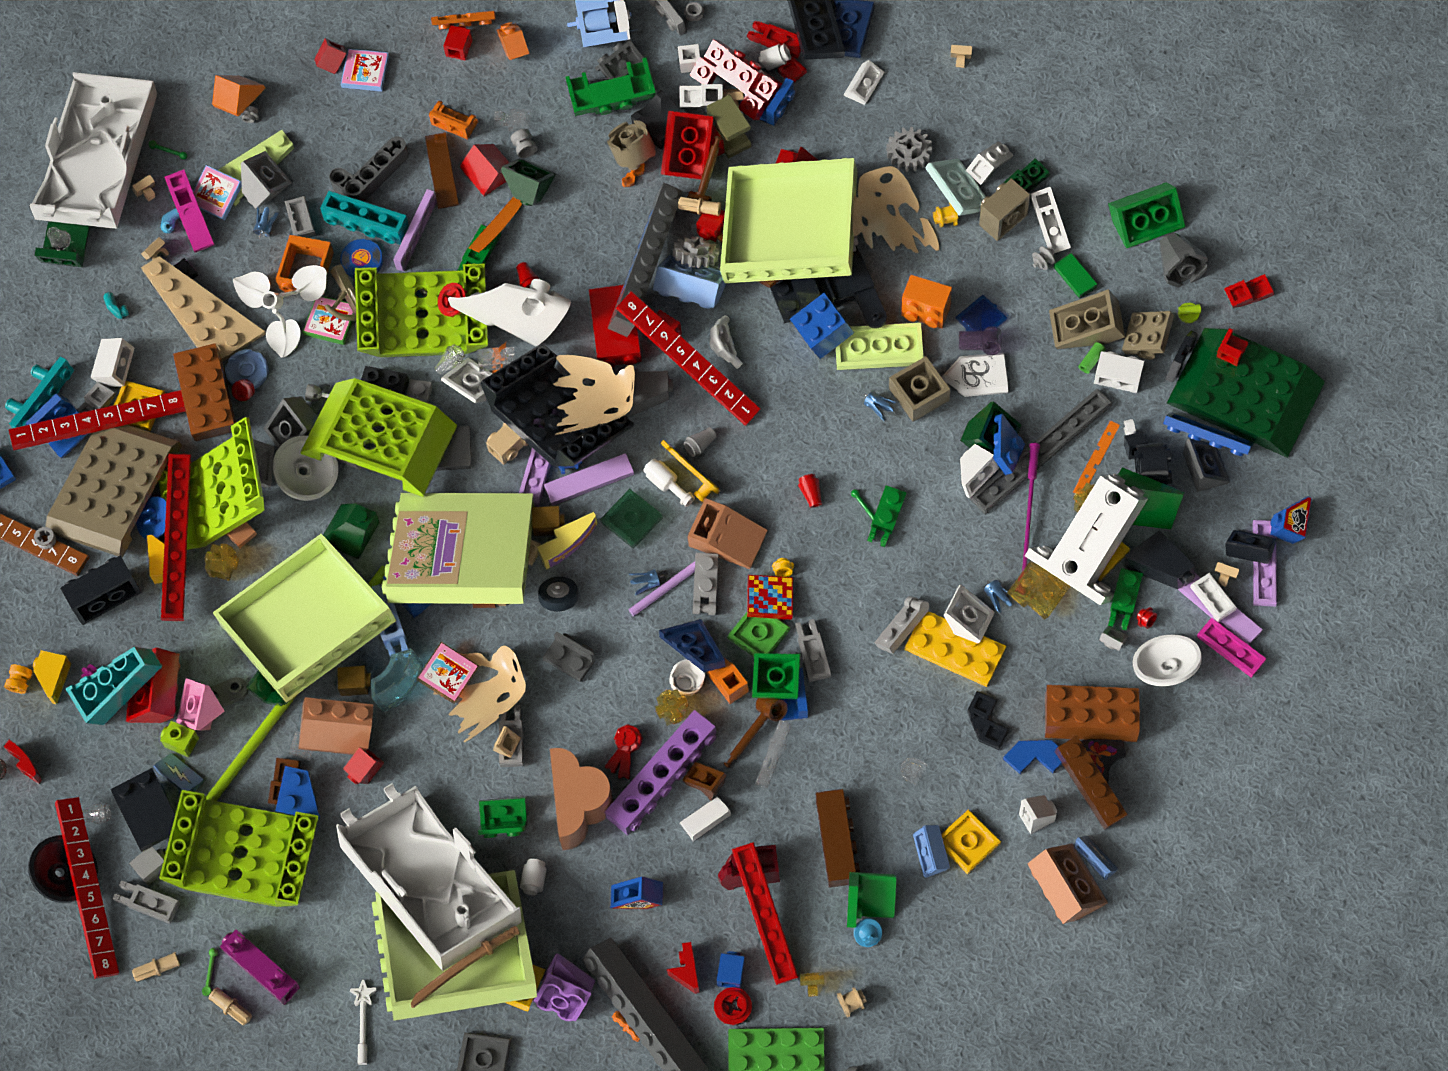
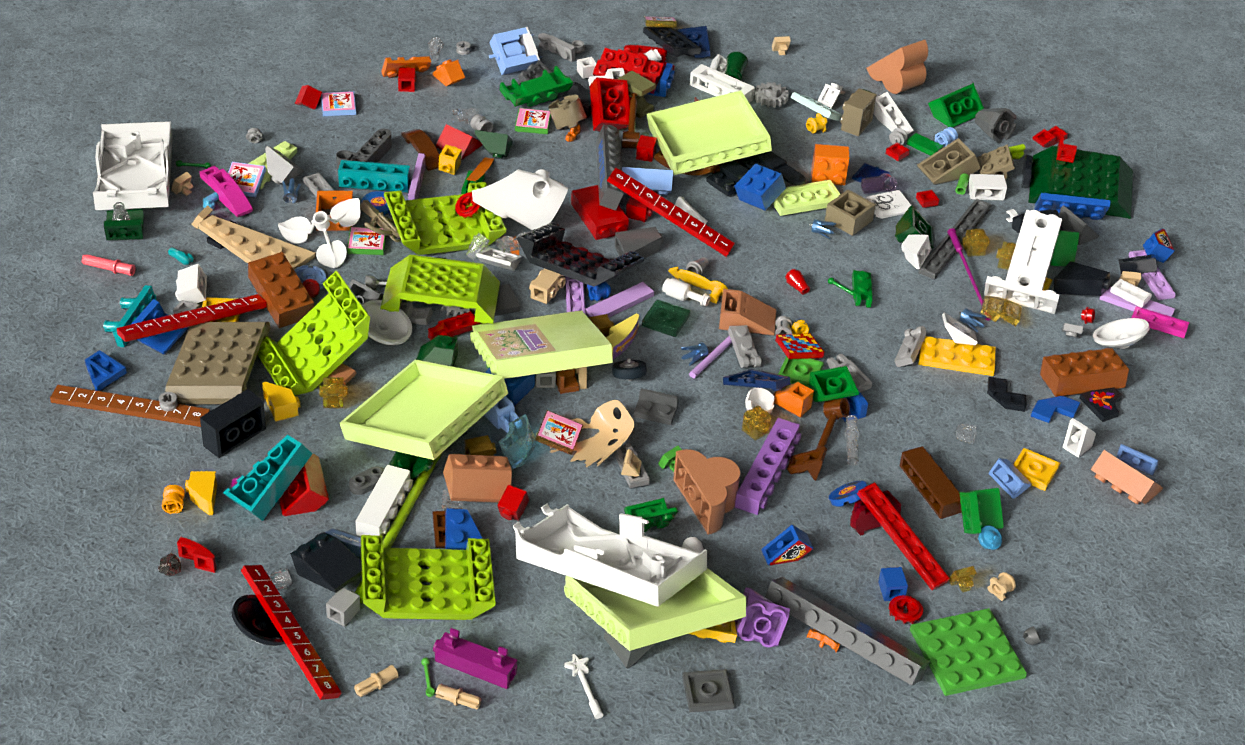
camera: 25 degrees left, 25 degrees down
(41, 310) = (115, 266): none -> coral axle
(148, 902) = (349, 634): light grey hinge -> none
(152, 518) = (263, 371): blue piece -> none
(176, 537) = (290, 379): red tile -> none
(179, 738) = (338, 514): lime brick -> none
(198, 706) = (349, 485): bright pink slope -> none
(230, 732) = (384, 502): none -> white brick
(235, 93) = (239, 122): orange slope -> none
(377, 485) = (453, 326): none -> red hinge
(452, 121) = (420, 121): orange hinge -> none
(463, 204) = (450, 159): none -> yellow brick
(486, 948) = (689, 584): medium nougat sword -> none
(558, 738) = (668, 458): none -> bright green tile
(589, 143) = (533, 121): none -> tile
(594, 400) = (611, 242): tan piece -> none
(627, 739) = (731, 450): red piece -> none
(687, 974) = (855, 590): red slope -> none
(695, 252) = (643, 161): light grey gear -> none
(699, 206) = (636, 134): tan axle -> none
(705, 818) = (818, 491): white slope -> none
(731, 835) = (846, 493): none -> blue tile
(763, 562) = (781, 329): none -> light grey bush
(873, 139) = (719, 83): none -> white brick
(873, 208) = (774, 118): tan piece -> none
(880, 92) = (736, 64): none -> dark green plant
(1007, 445) = (934, 233): blue wing -> none
(1031, 284) = (897, 151): none -> red plate
(1033, 377) = (927, 198): none -> red plate
(1058, 469) = (975, 242): none -> clear yellow brick
(1090, 782) = (1110, 410): reddish brown brick -> none
(1094, 137) = (902, 68): none -> nougat brick
(1097, 455) = (996, 237): orange piece -> none
(1106, 270) = (946, 136): none -> light blue wheel
(1125, 596) = (1066, 308): green hinge -> none

